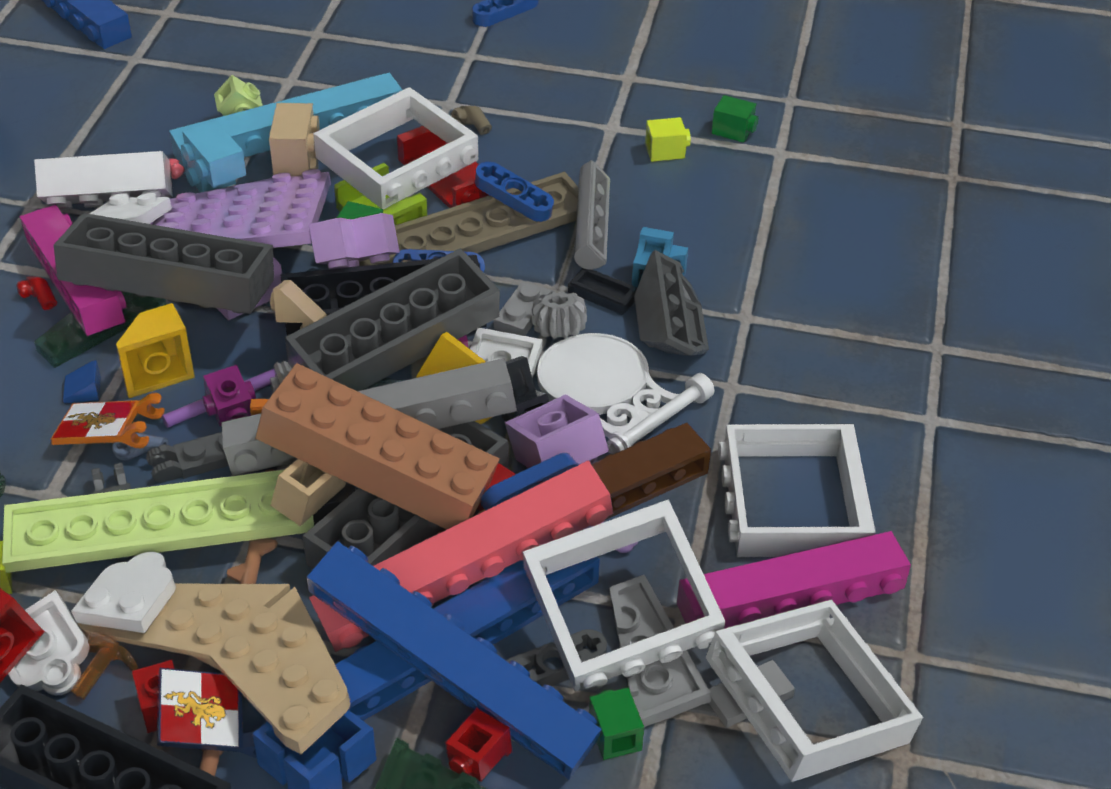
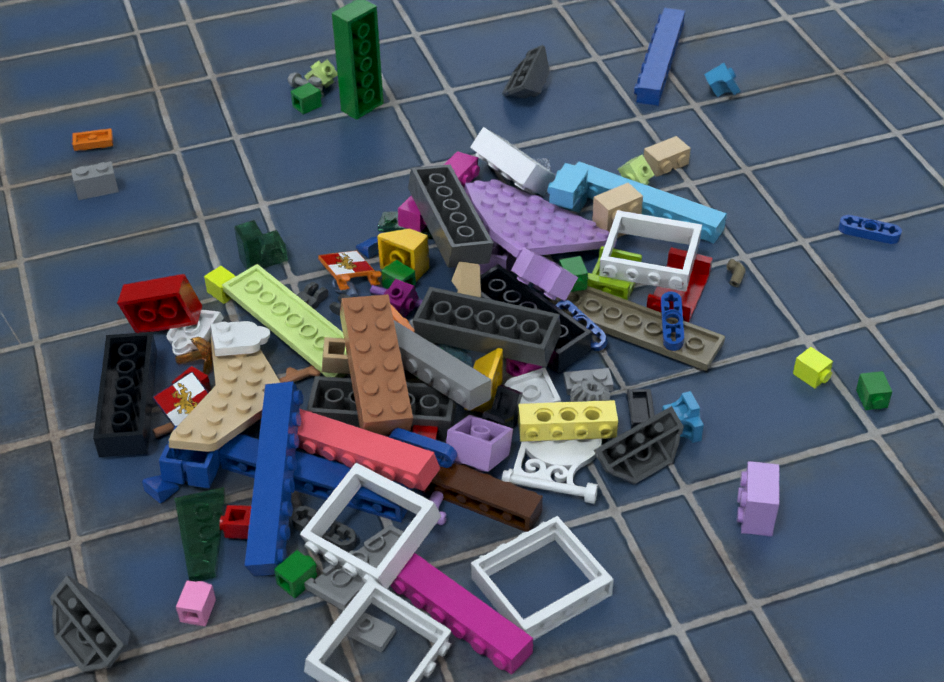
camera: 60 degrees right, 0 degrees up
(141, 209) = (487, 183): white plate -> none
(179, 382) = (398, 271): none -> green brick
(236, 60) = (667, 155): none -> tan piece
(585, 347) = (567, 420): none -> light yellow brick
(592, 217) = (687, 366): light grey brick -> none
(825, 260) = (758, 498): none -> lavender brick

